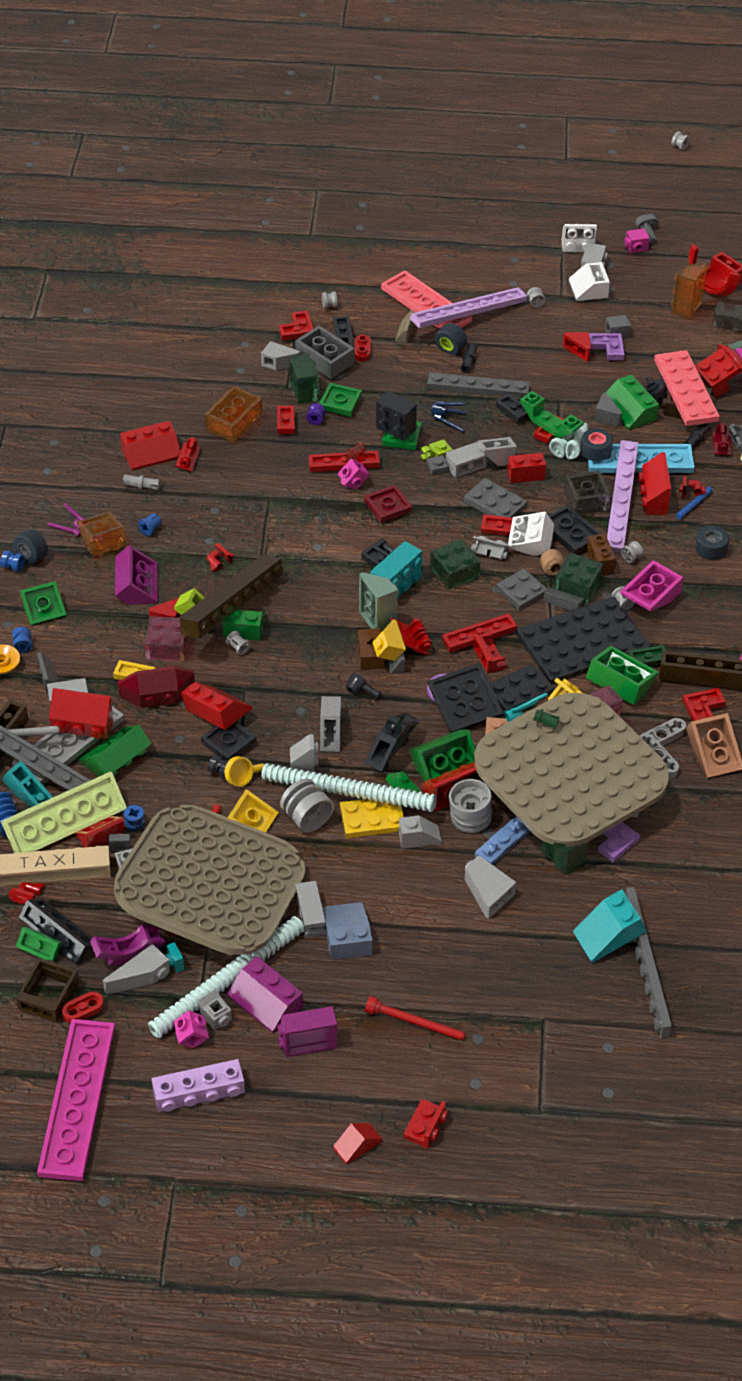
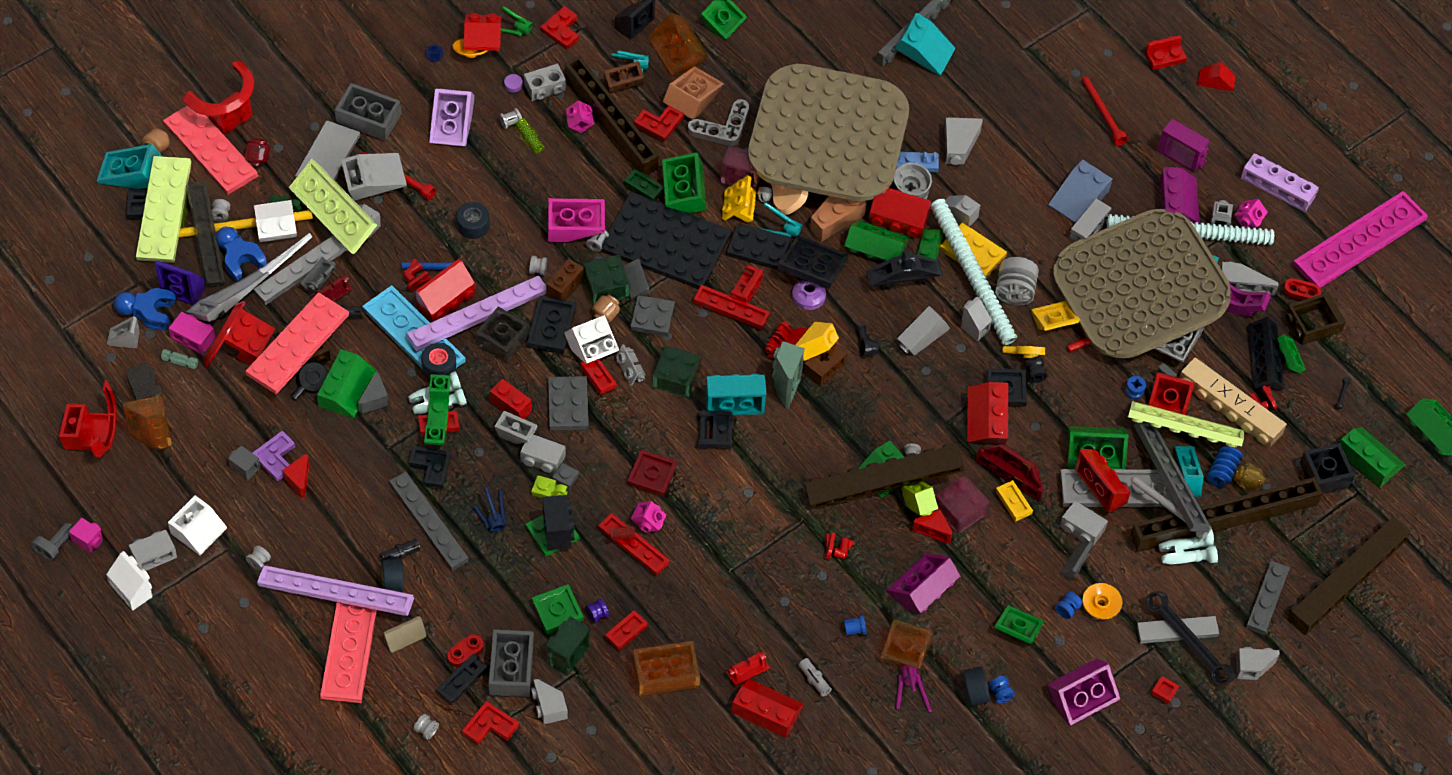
camera: 135 degrees left, 10 degrees up
(546, 718) = (812, 164): dark green pin -> none

